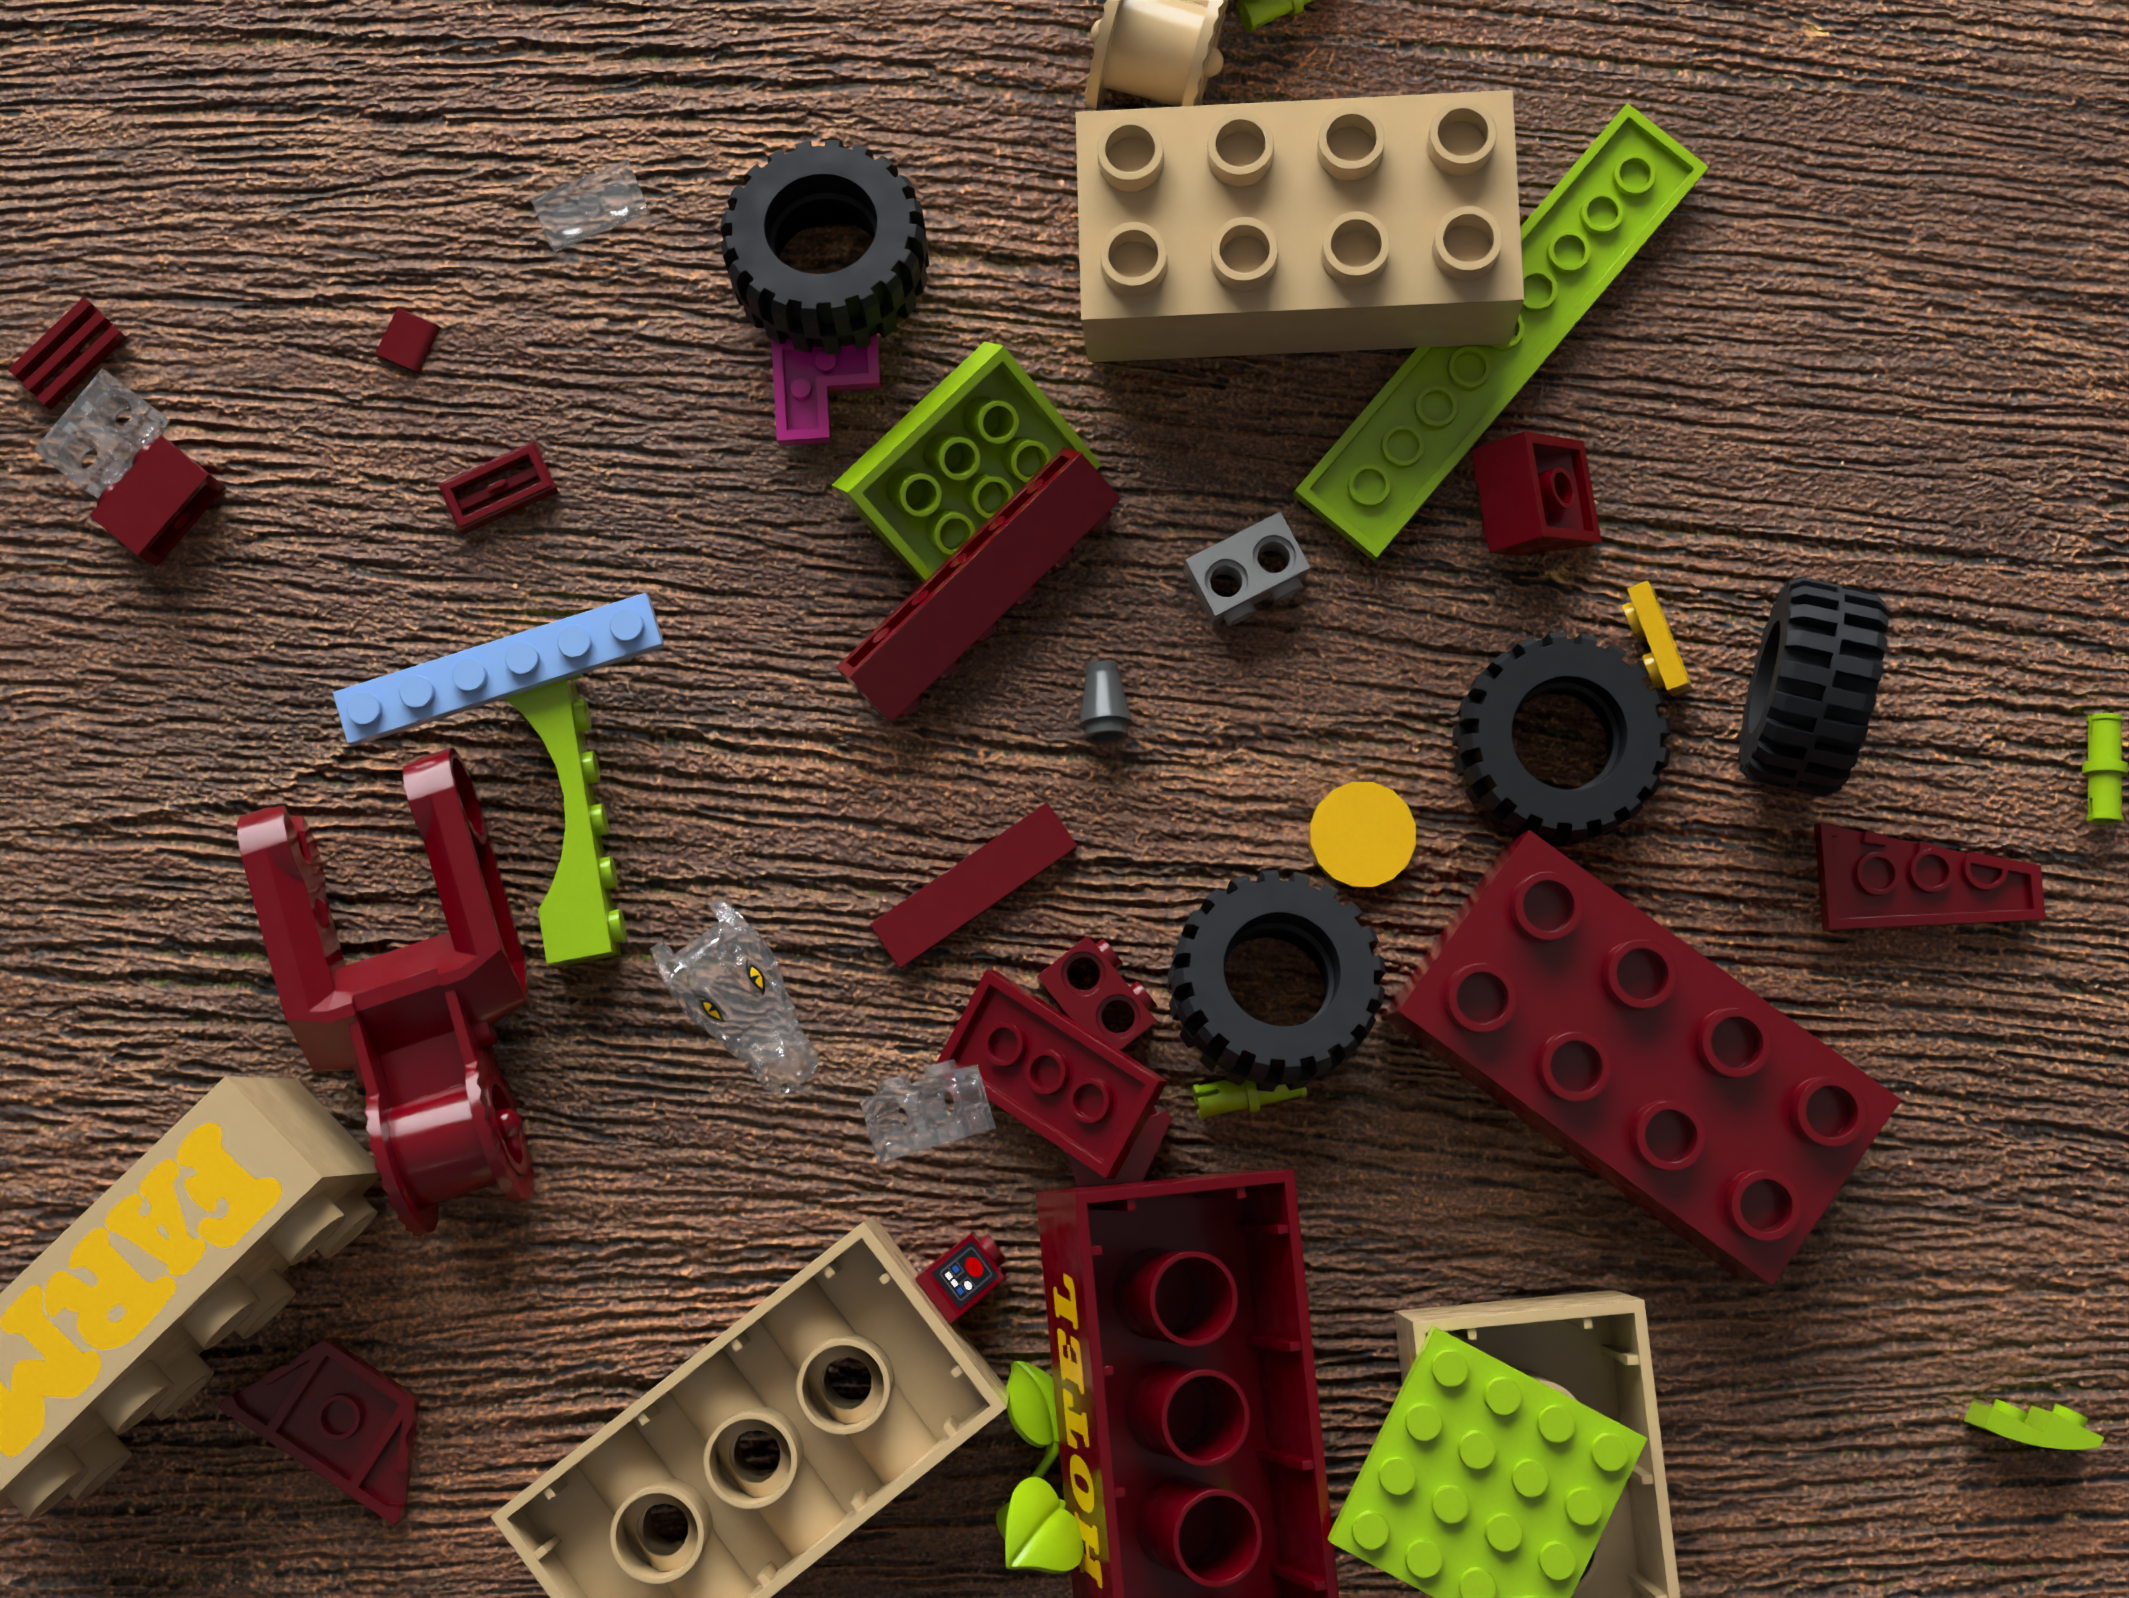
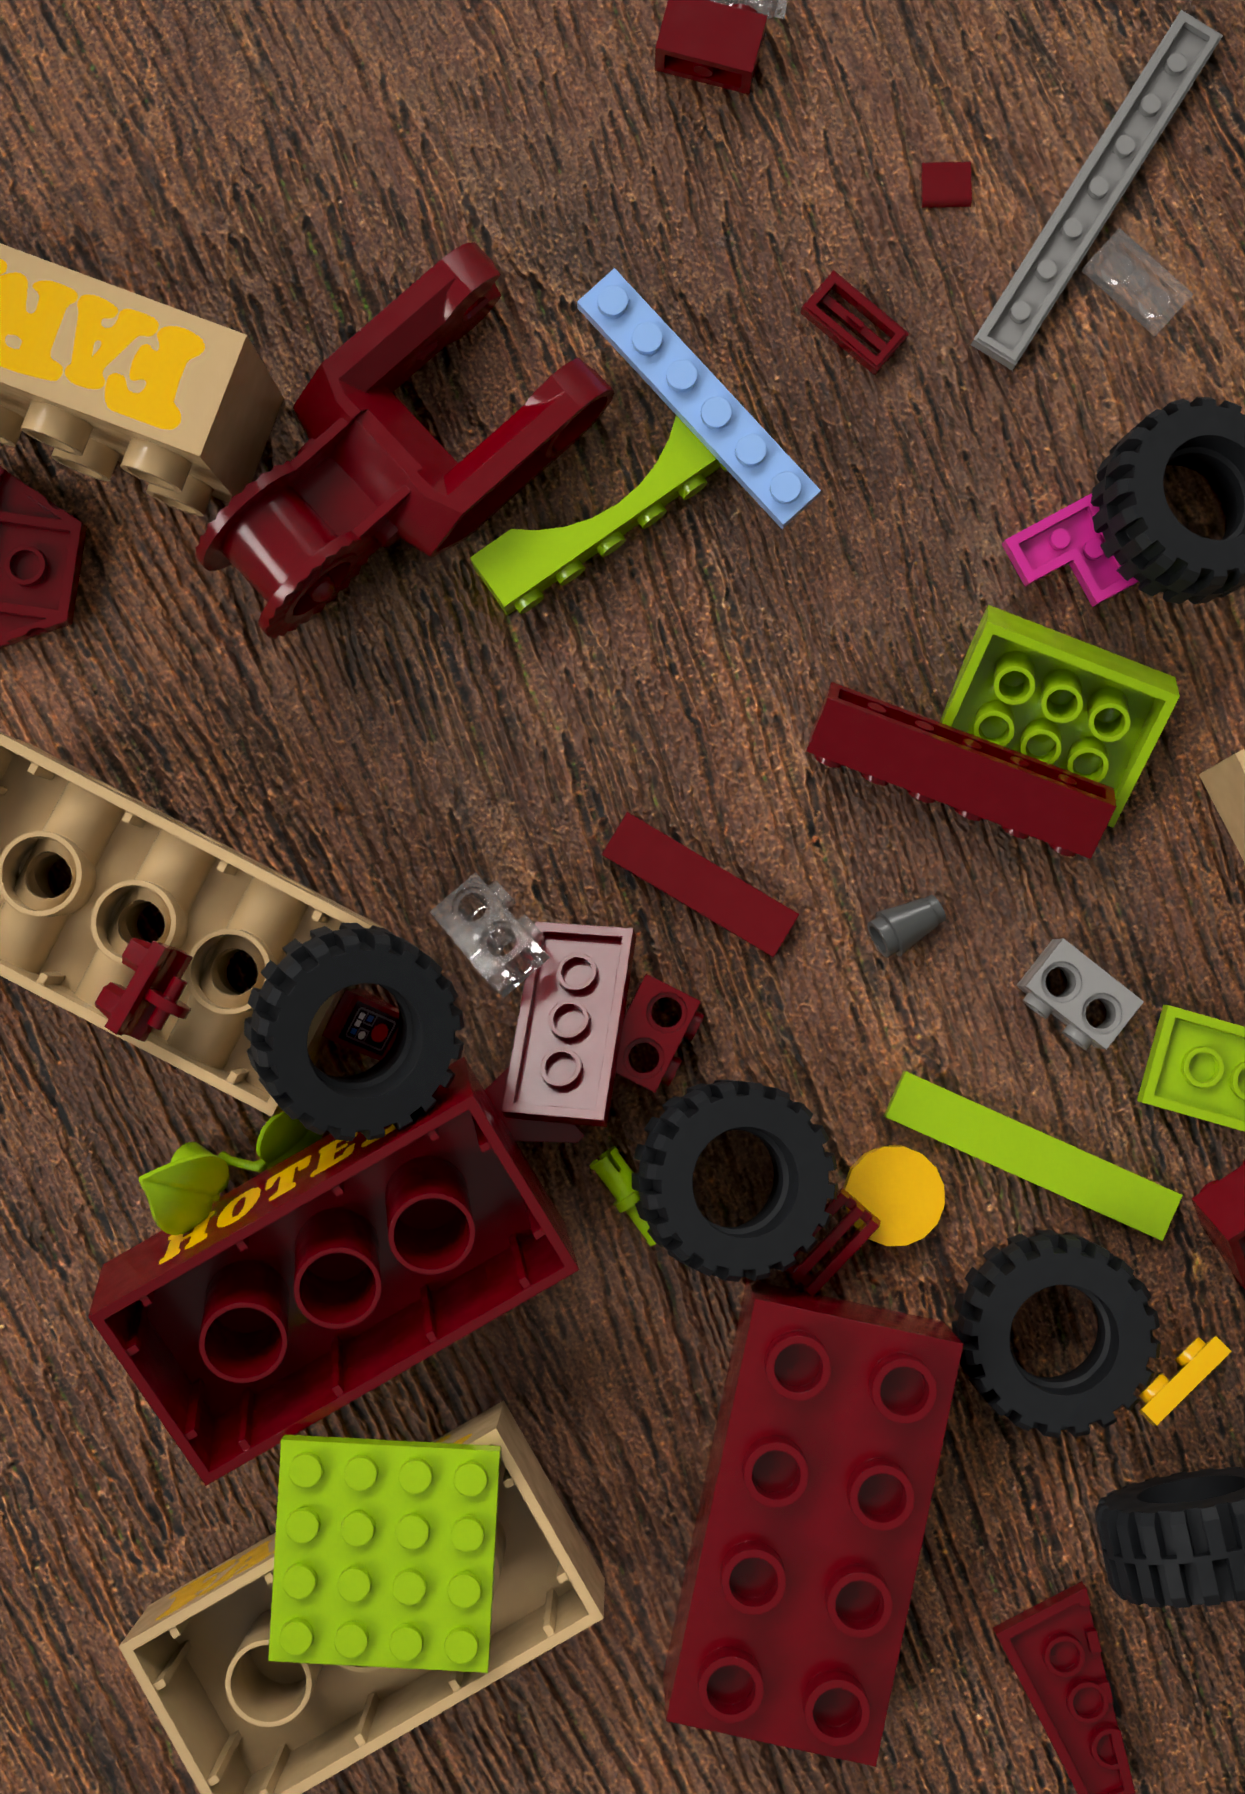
camera: 65 degrees right, 5 degrees up
(484, 204) = (1096, 190): none -> light grey tile
(738, 995) = (517, 729): clear animal -> none
(829, 1472) = (150, 993): none -> dark red hips
(1016, 1238) = (395, 1084): none -> black tyre
(1381, 685) = (1033, 1155): none -> lime tile
(1397, 959) = (871, 1223): none -> dark red tile

